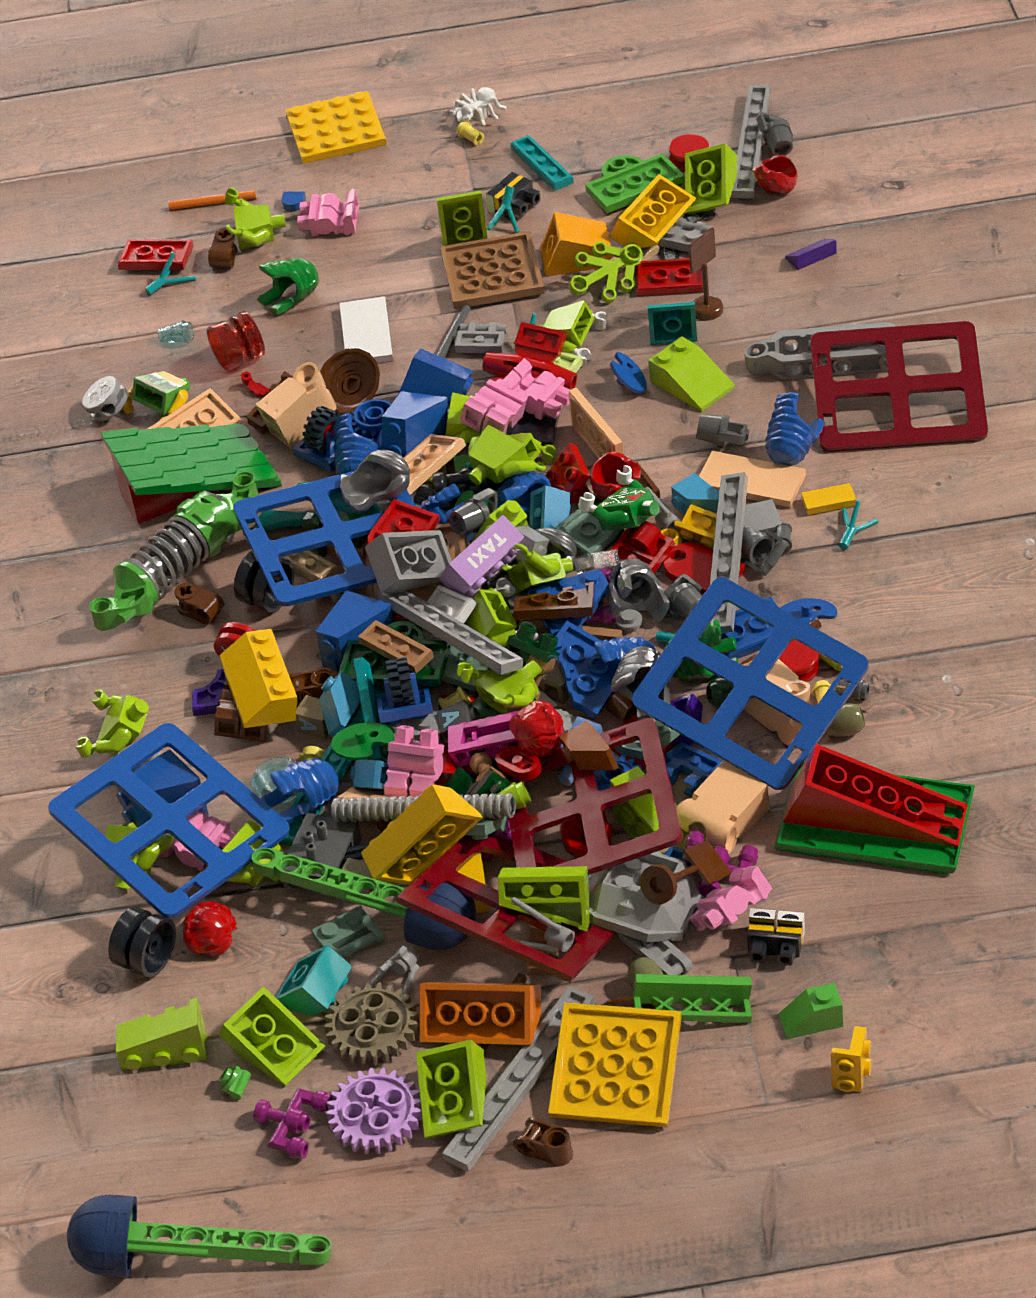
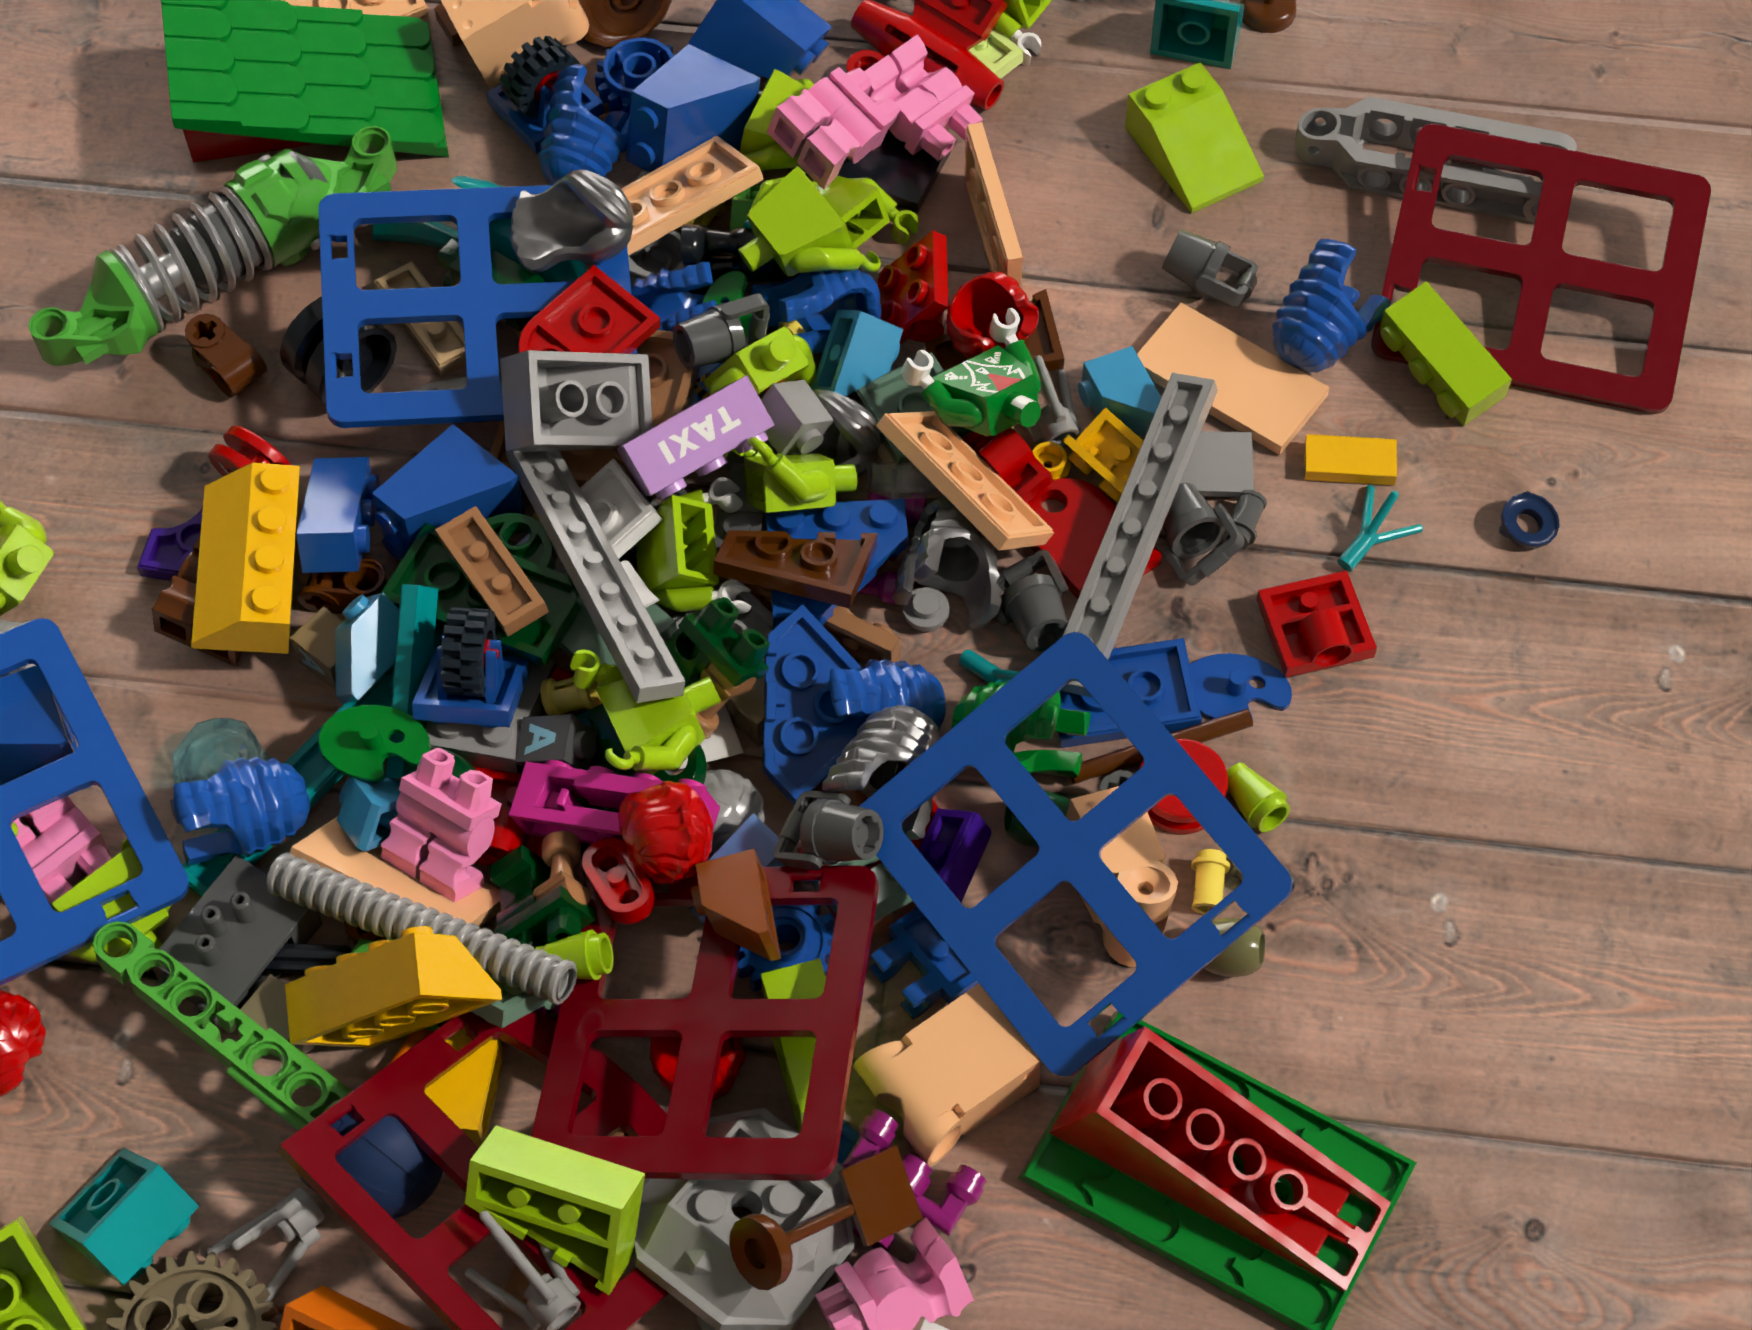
camera: 10 degrees right, 15 degrees up
(298, 652) = (337, 515): none -> blue brick
(311, 753) = (295, 728): light yellow plate -> none
(352, 927) = (216, 1113): sand green plate -> none
(623, 707) = (828, 832): none -> dark grey piece
(628, 373) = (1090, 116): blue piece -> none
(630, 548) = (965, 480): none -> light nougat tile
(838, 573) = (1316, 623): none -> red plate
(861, 436) = (1444, 354): none -> lime brick
(931, 494) = (1540, 510): none -> dark blue piece

